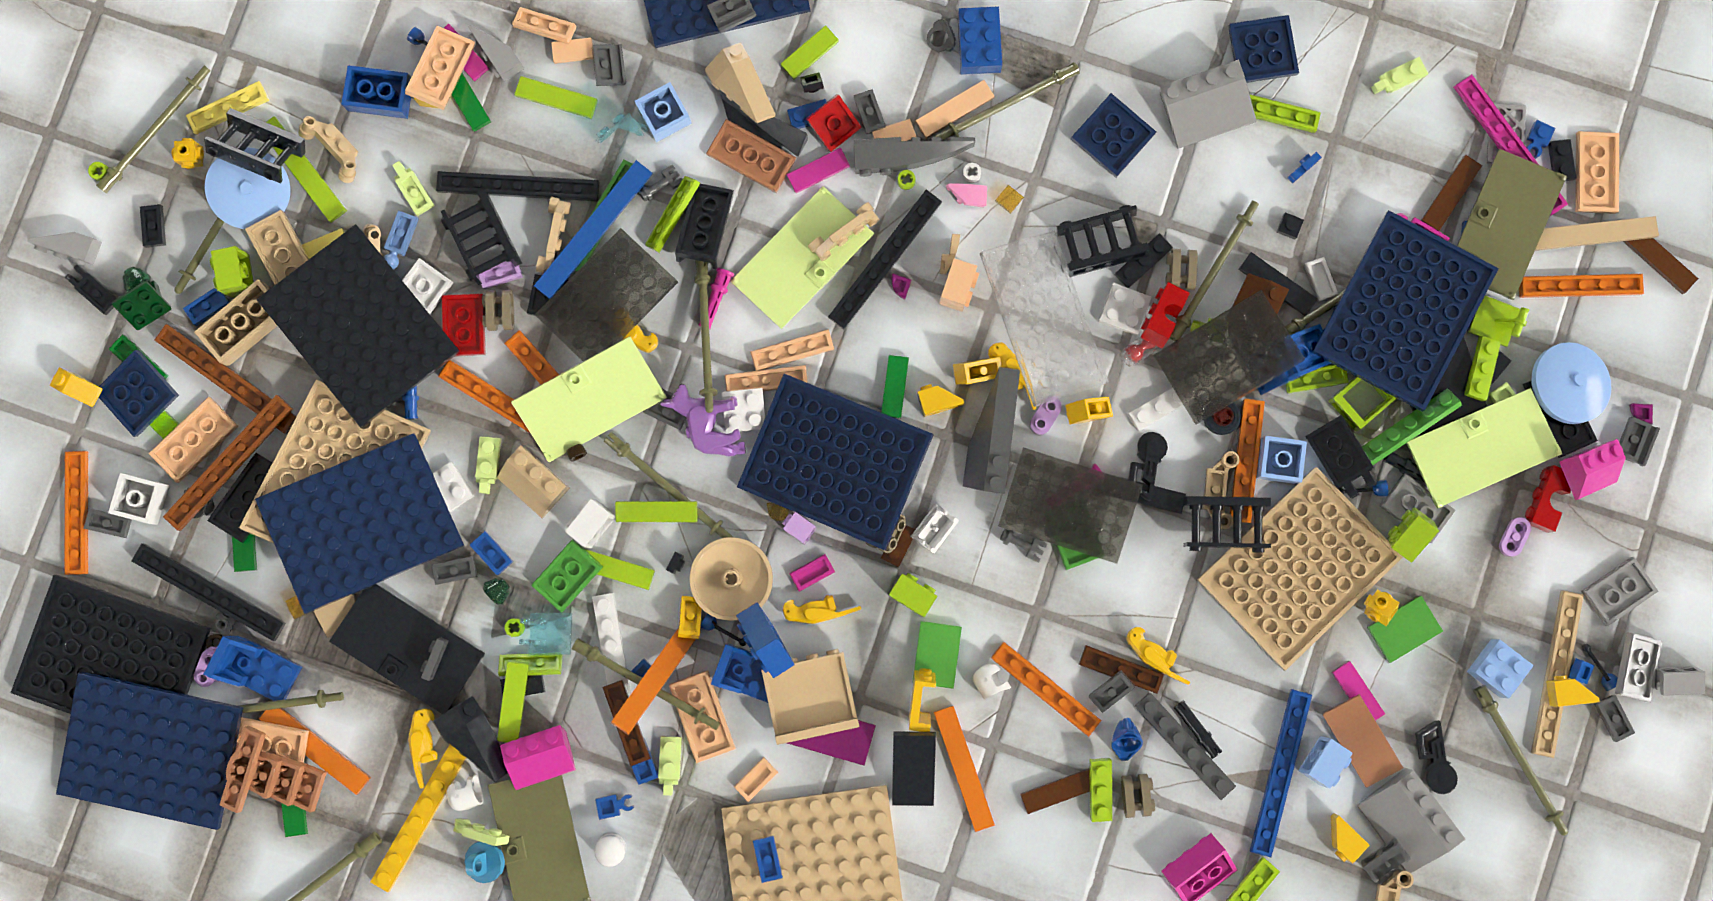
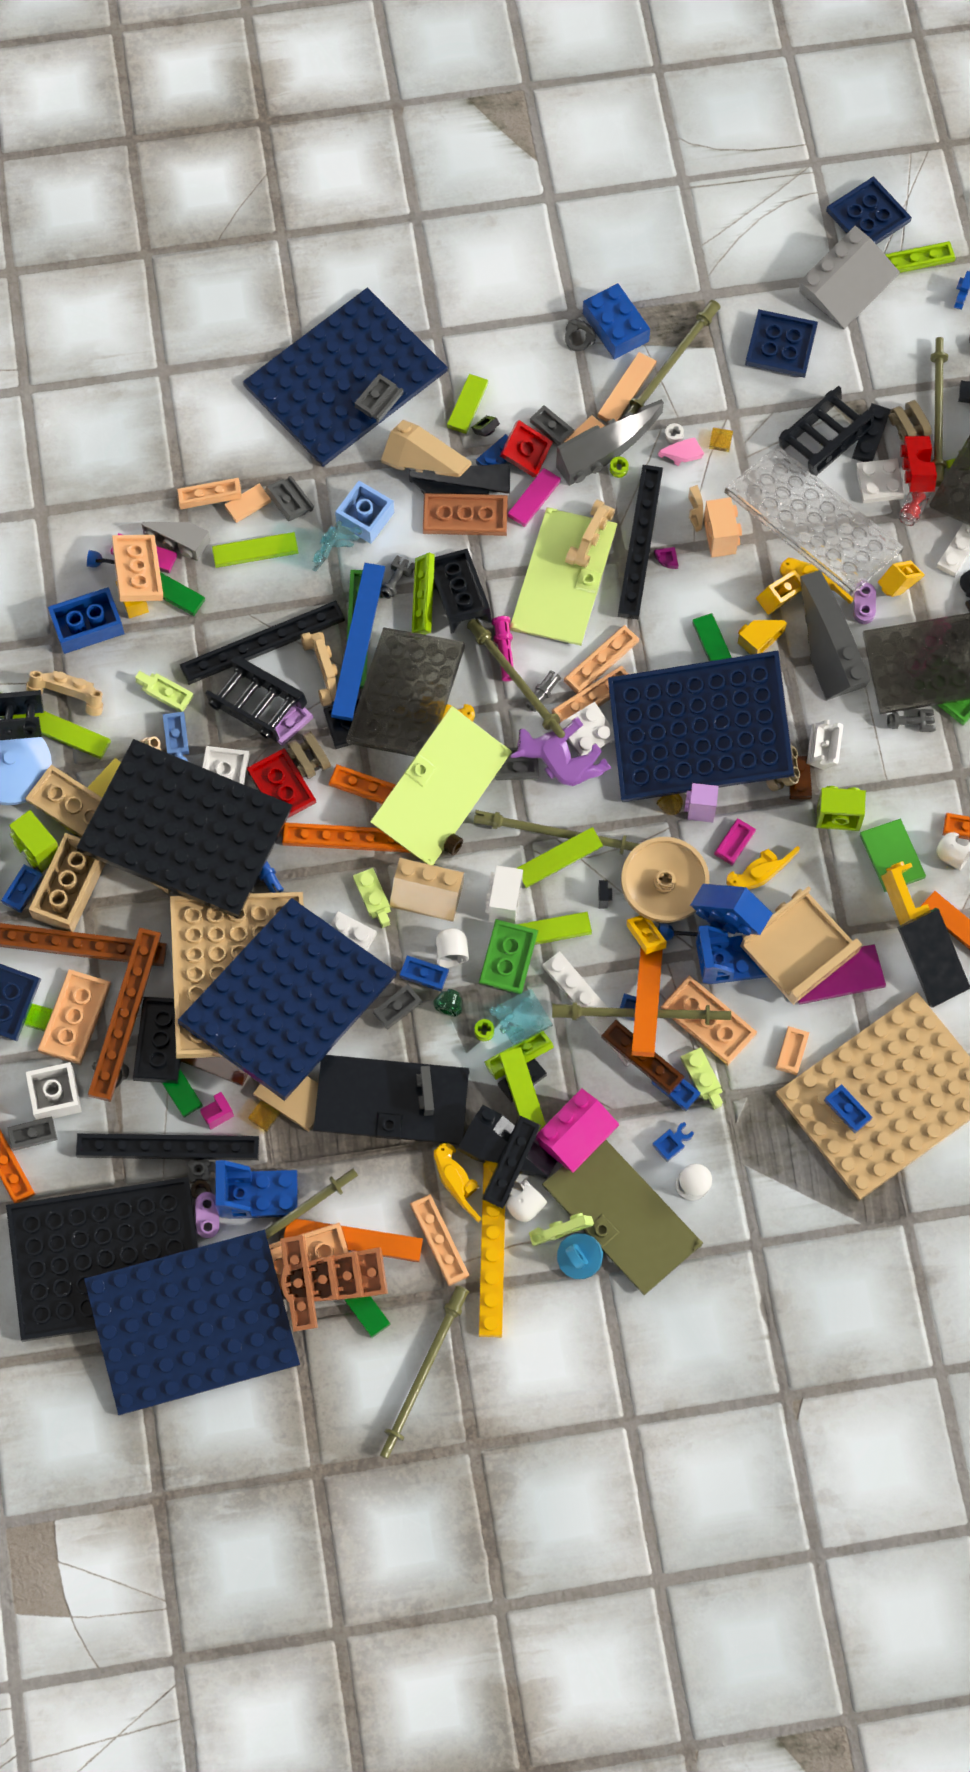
camera: 30 degrees left, 15 degrees down
(263, 582) = (217, 1111): none -> dark pink panel
(383, 785) = (439, 1240): none -> light nougat tile
(467, 757) = (511, 1162): none -> black tile
(524, 543) = (451, 942): none -> white helmet
(727, 353) = (543, 690): none -> dark grey pin

